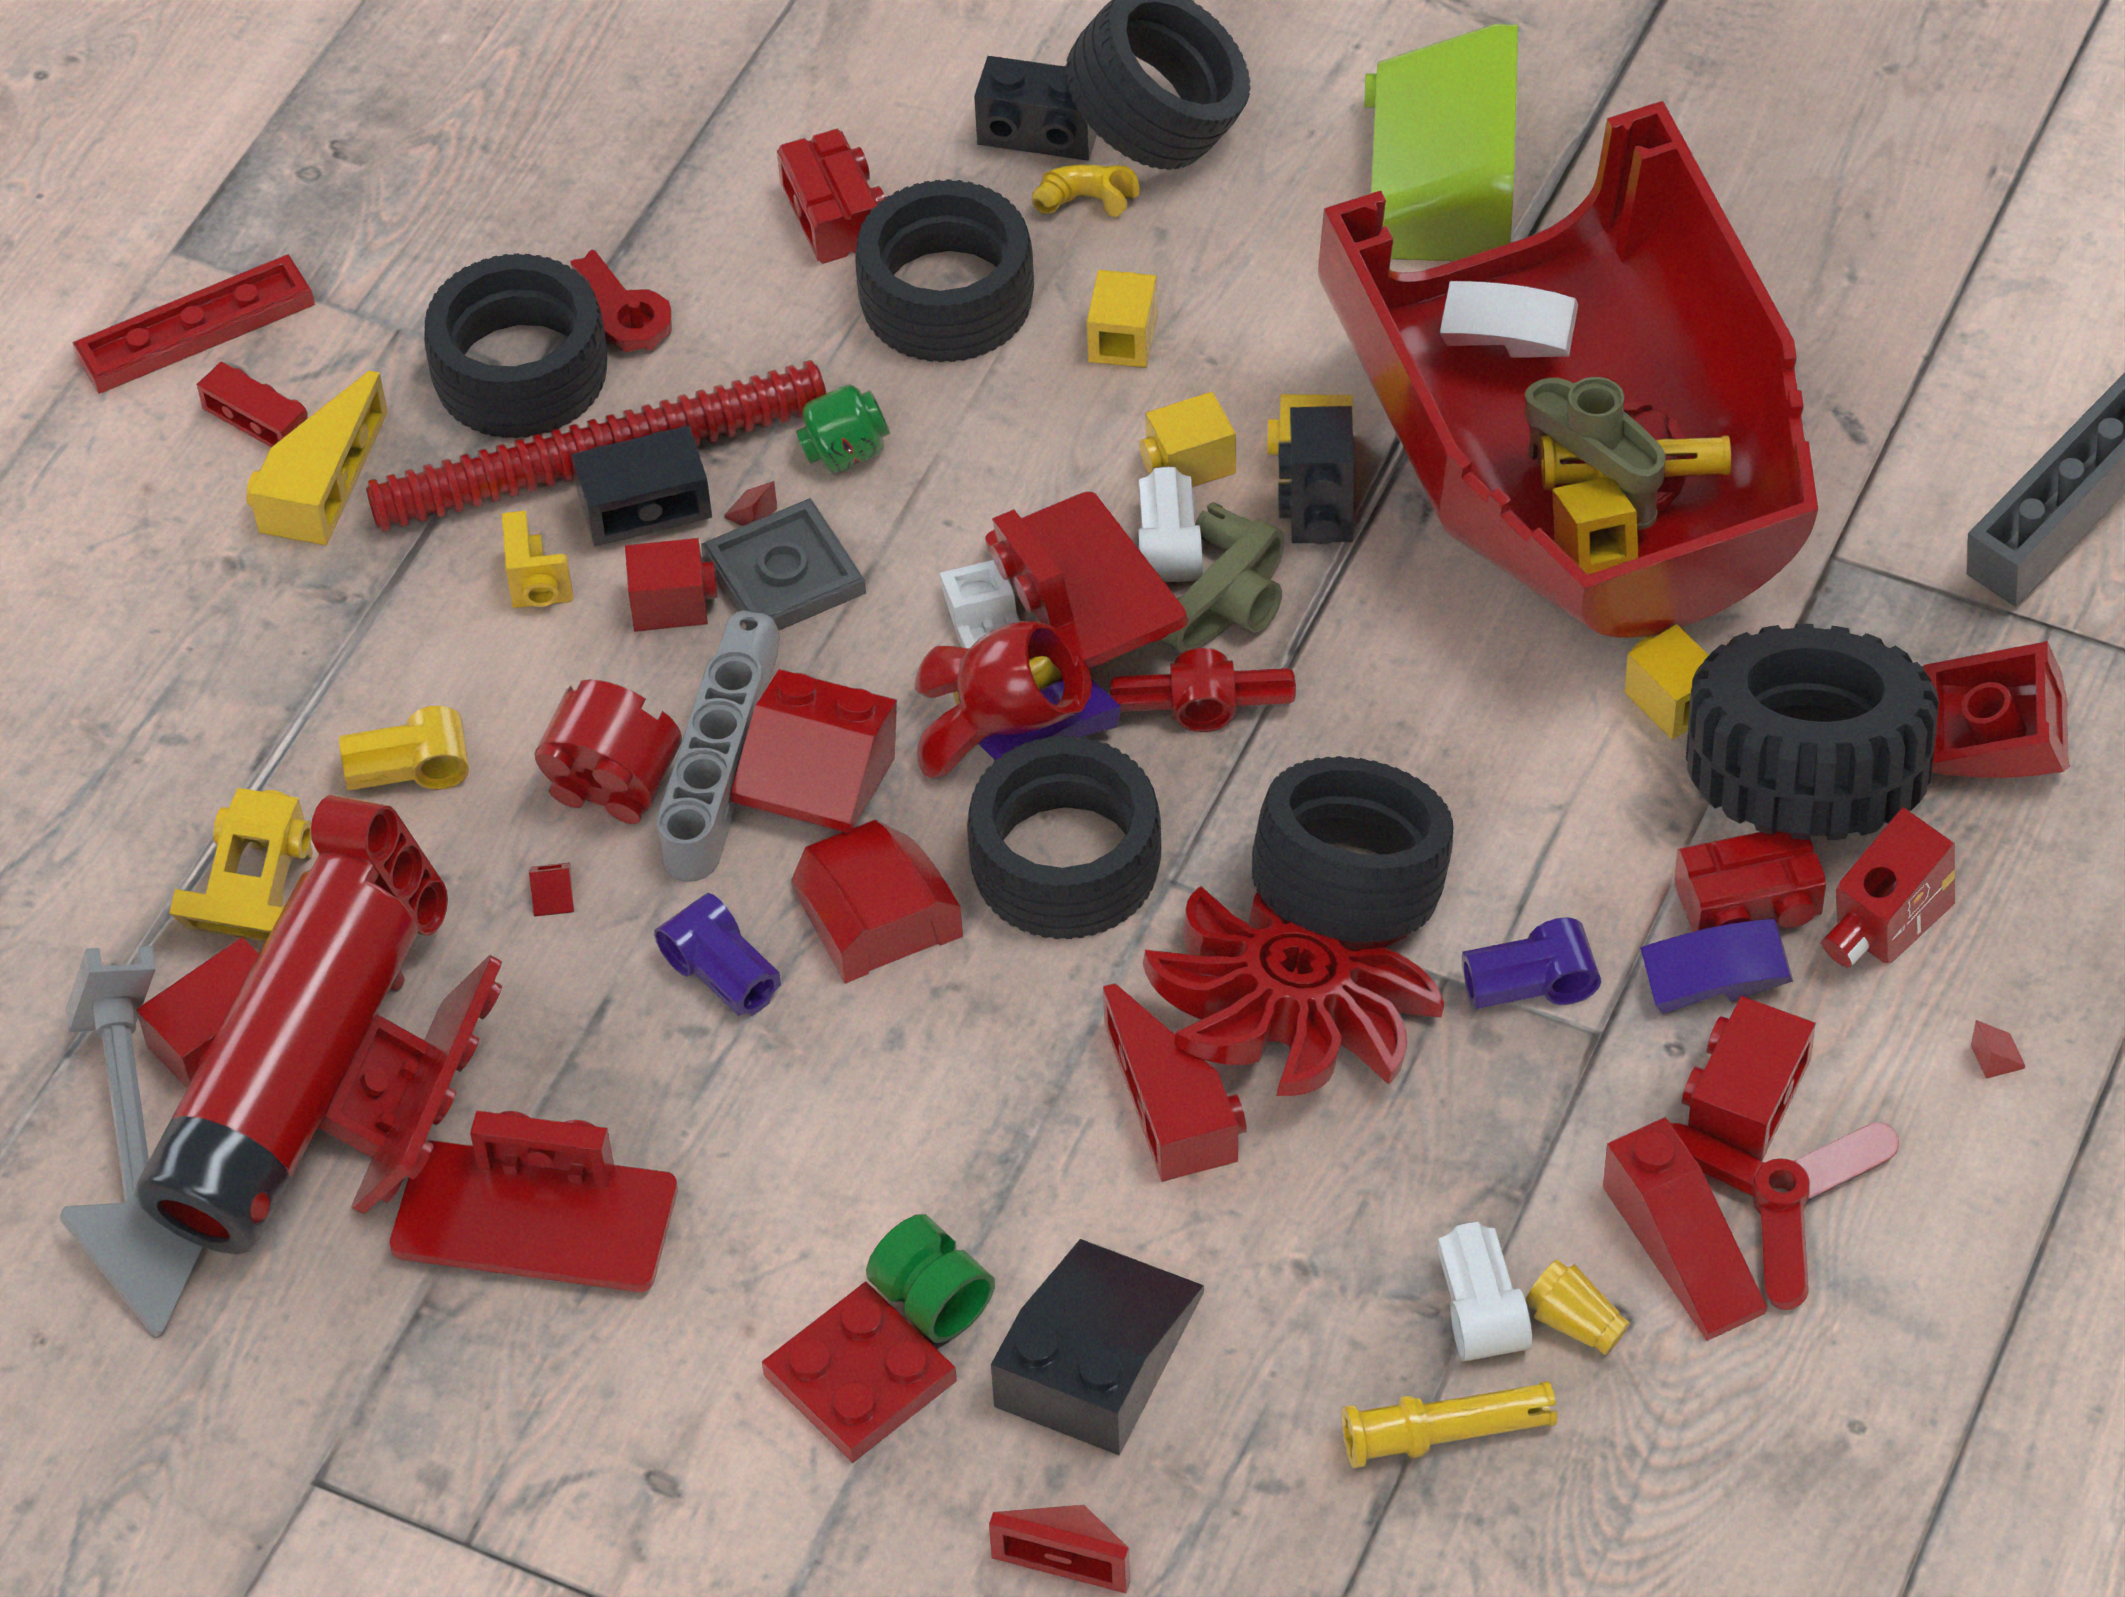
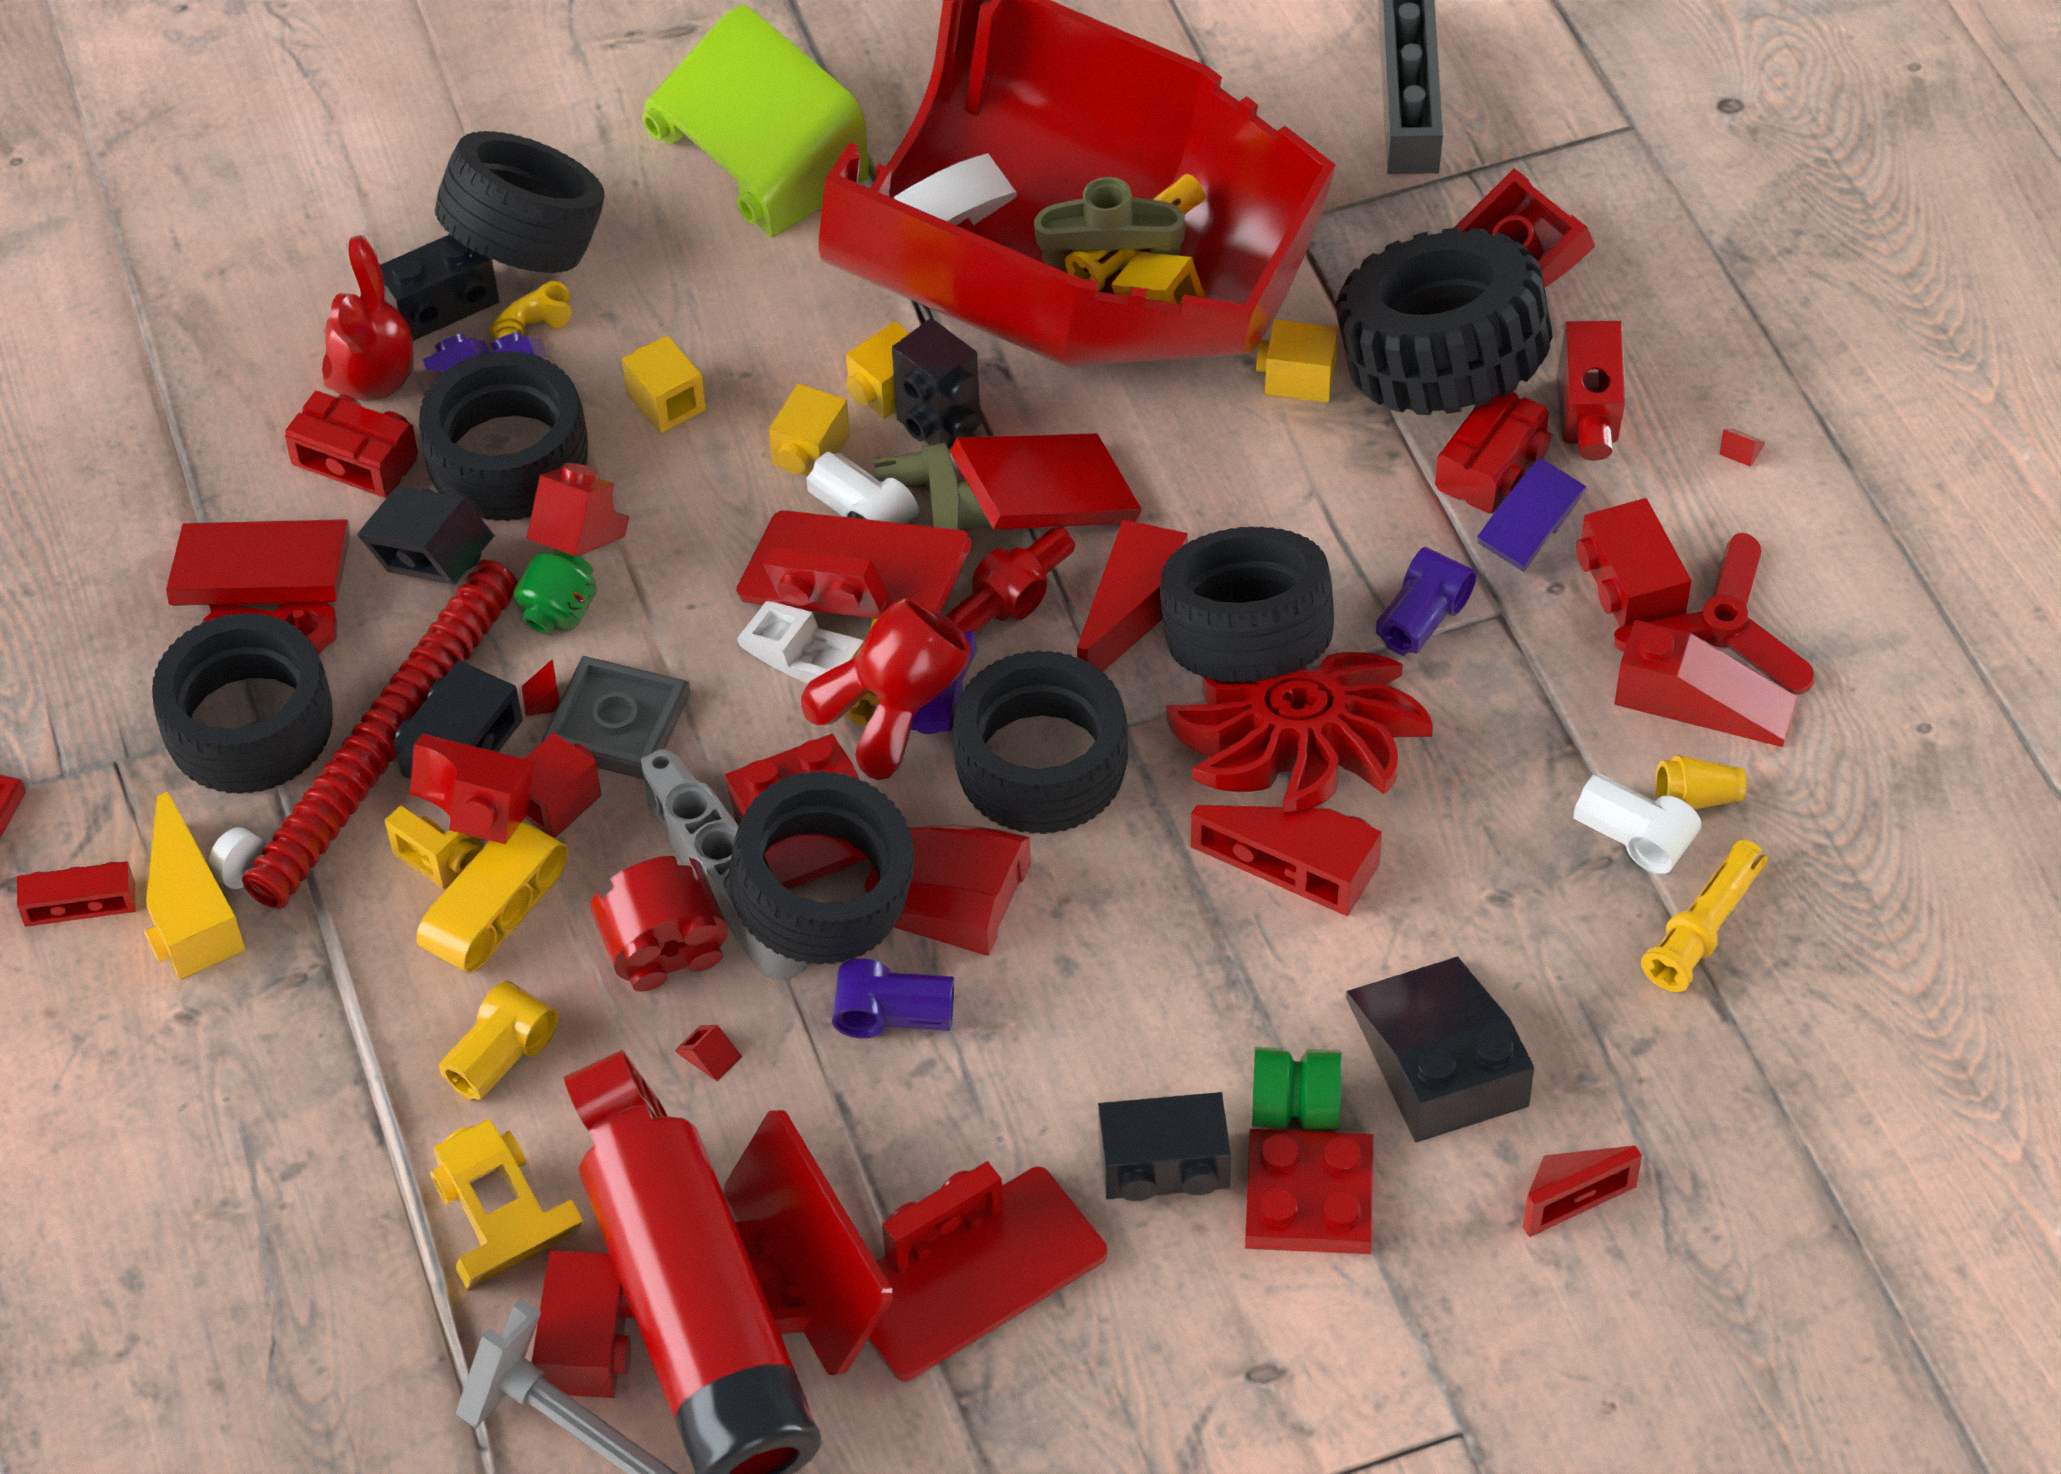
camera: 45 degrees left, 0 degrees up
(381, 458) = (234, 855): none -> white tile
(527, 637) = (491, 897): none -> yellow beam
(582, 538) = (475, 786): none -> red arch
(659, 243) = (258, 562): none -> red tile
(737, 726) = (841, 809): none -> black tyre
(773, 1236) = (1164, 1146): none -> black brick
(790, 308) = (427, 534): none -> black brick
(911, 372) = (575, 511): none -> red arch
(922, 112) = (365, 336): none -> red piece
(1029, 200) = (458, 348): none -> dark purple slope
(1237, 783) = (1128, 592): none -> red slope
(1323, 623) = (1045, 480): none -> red tile

